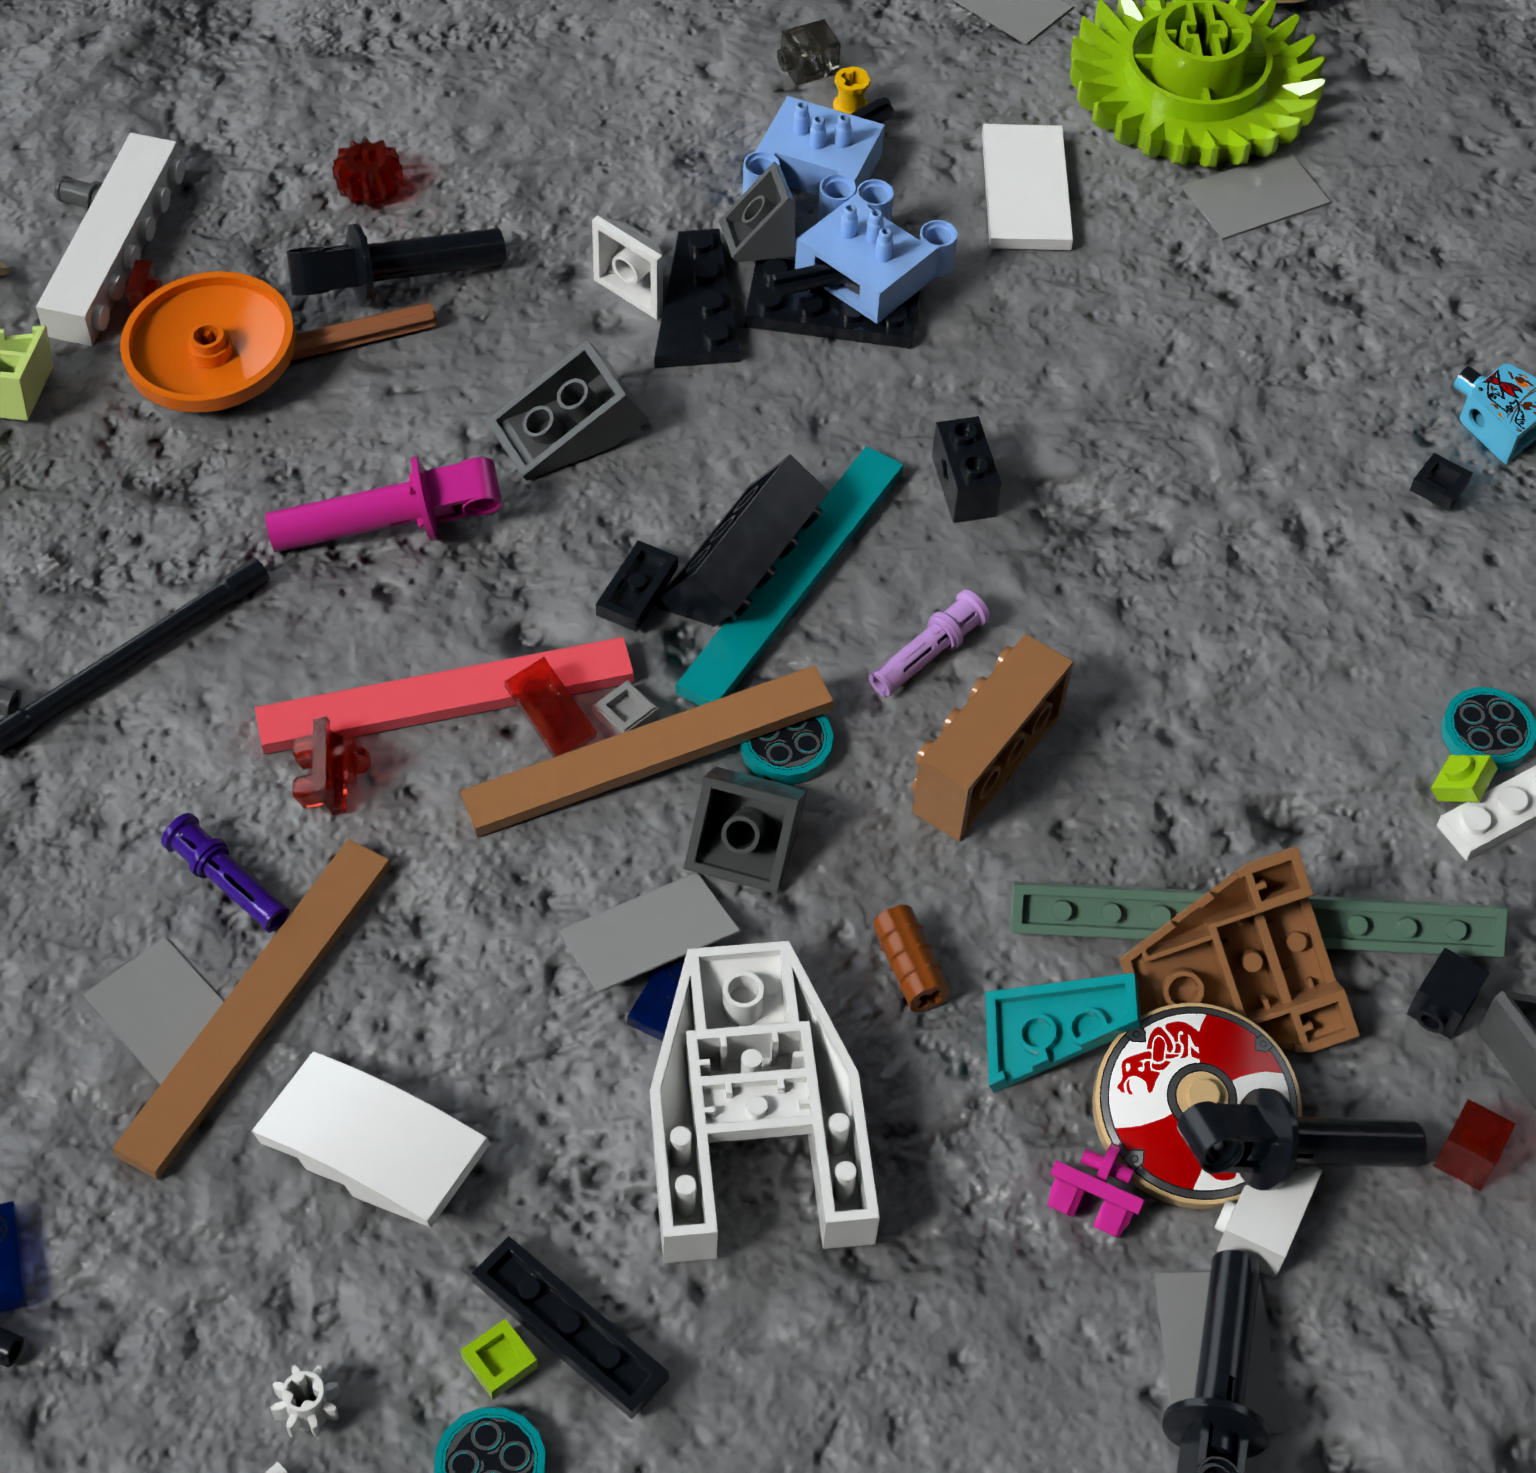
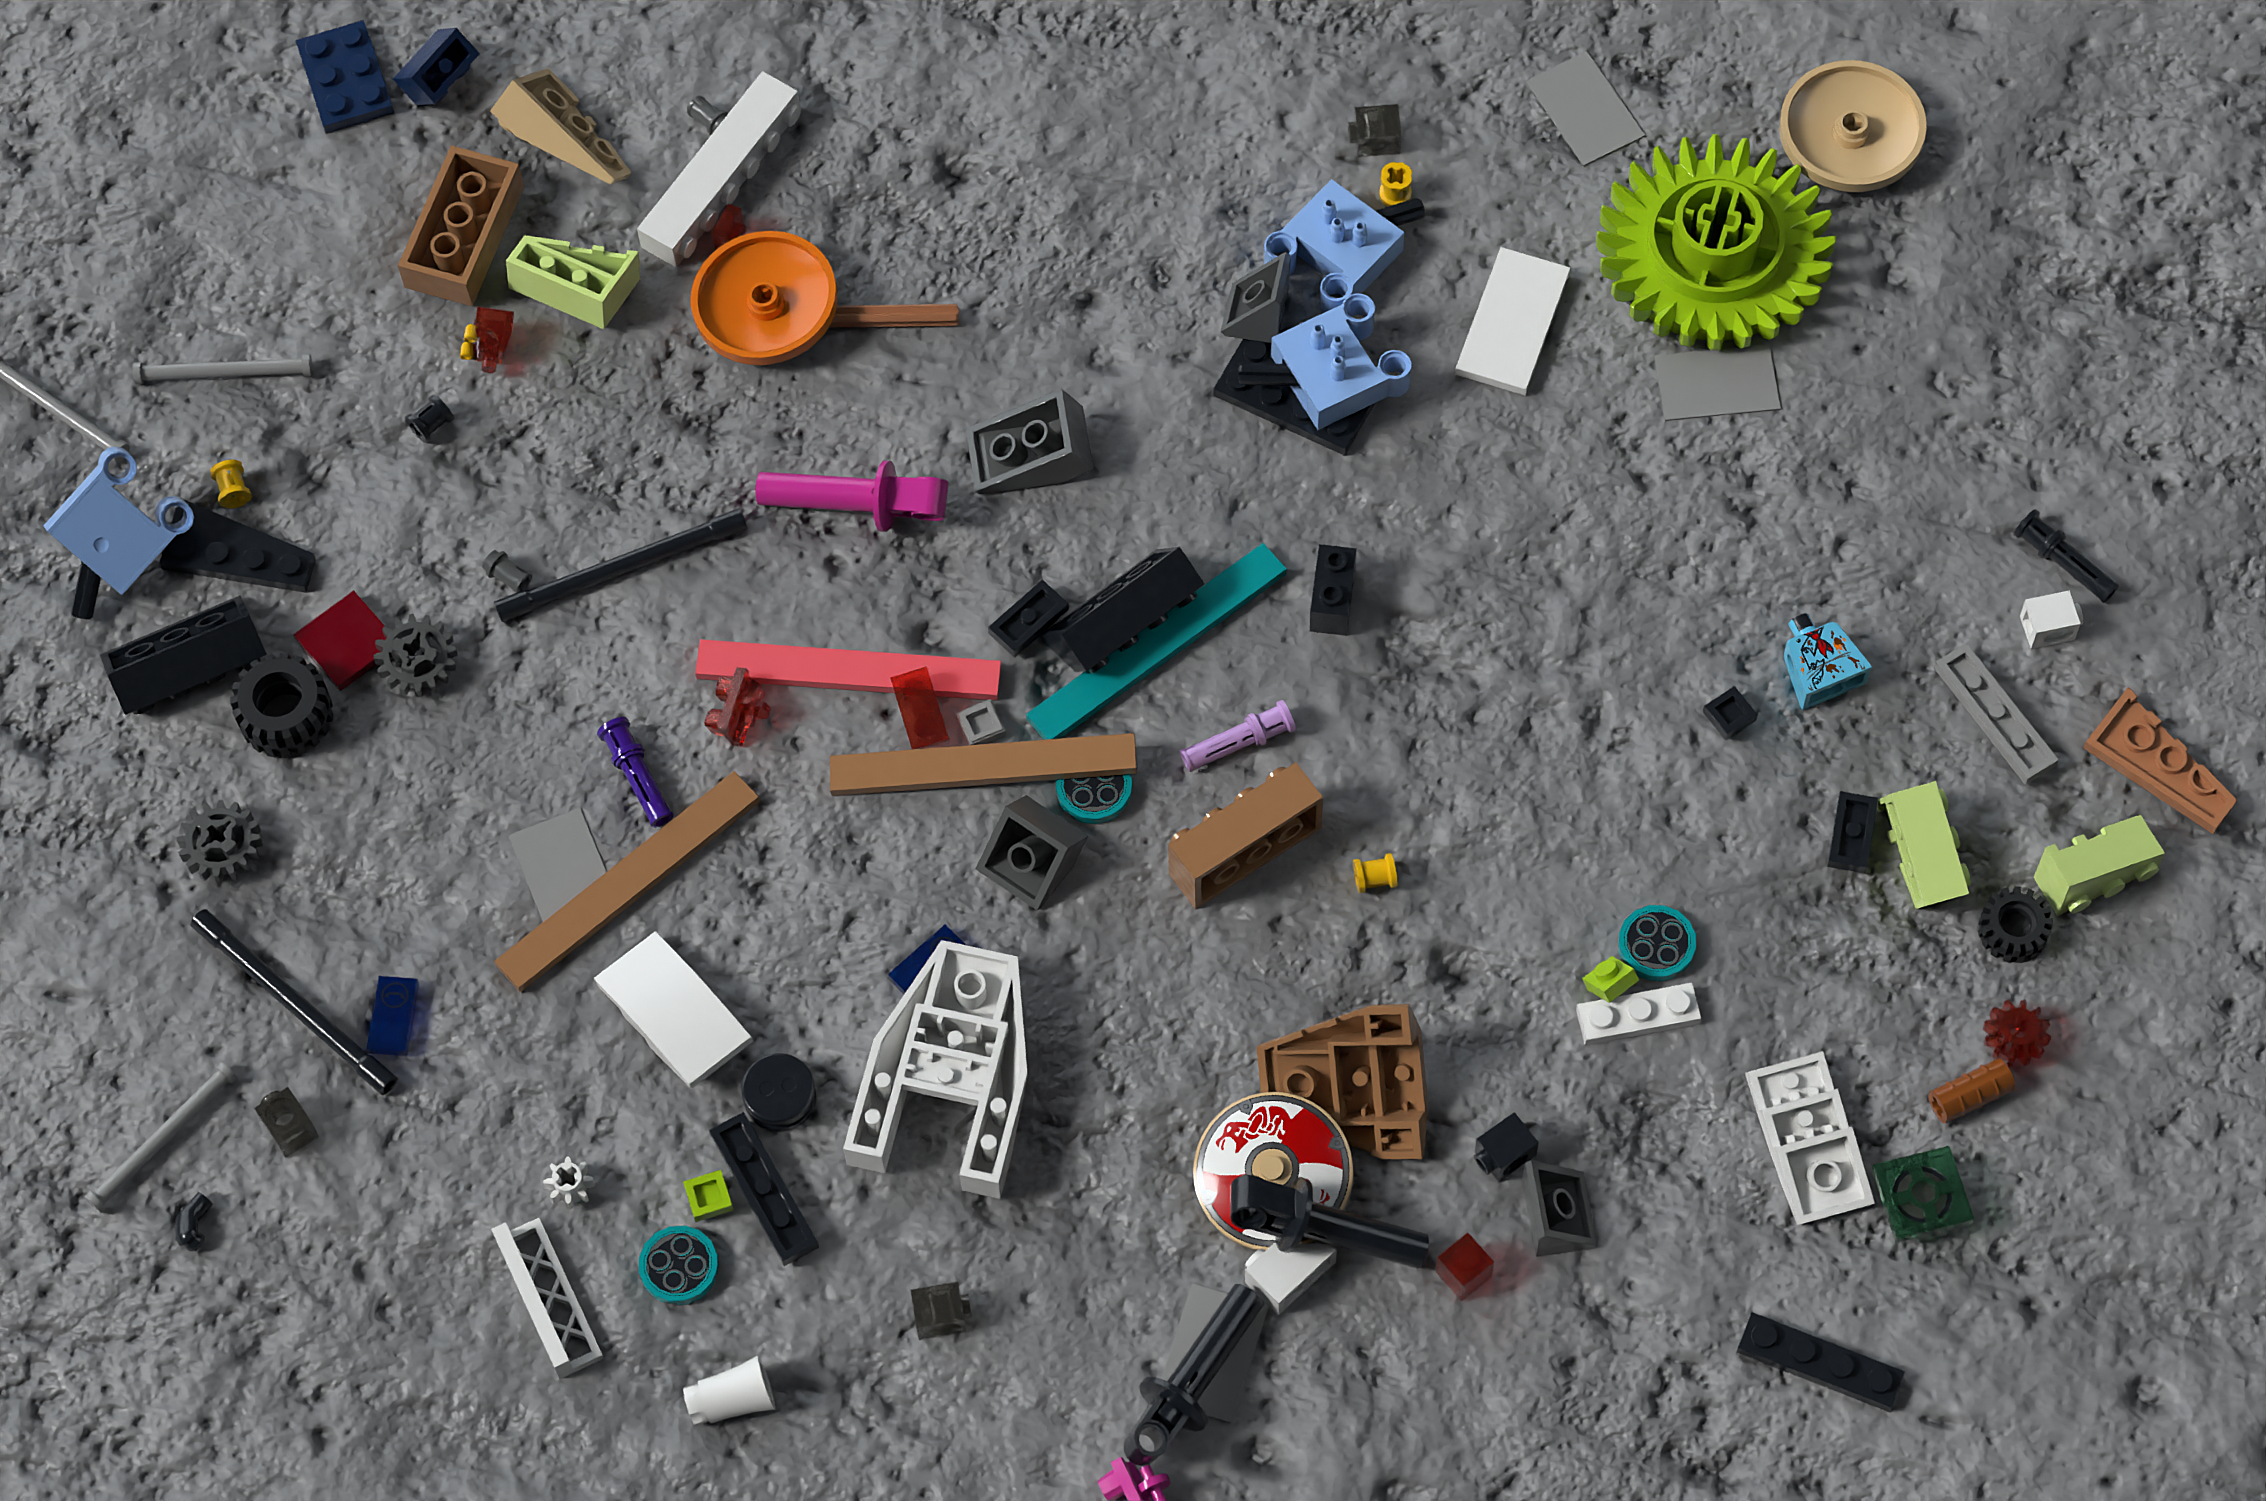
camera: 25 degrees right, 10 degrees up
(360, 264) = (905, 256): black piece -> none
(367, 171) = (949, 157): clear red gear -> none
(544, 1198) = (779, 1092): none -> black head
(628, 264) = (1133, 313): white slope -> none
(647, 932) = (928, 912): light grey piece -> none
(697, 308) = (1179, 368): black wing -> none
(861, 1409) = (940, 1310): none -> clear smoke brick
(911, 958) = (1113, 994): dark orange axle -> none
(1054, 1023) = (1194, 1078): teal wing -> none
(1117, 1204) = (1158, 1201): dark pink hips -> none
(1149, 741) = (1375, 873): none -> yellow bush
(1341, 921) = (1444, 1062): sand green plate -> none

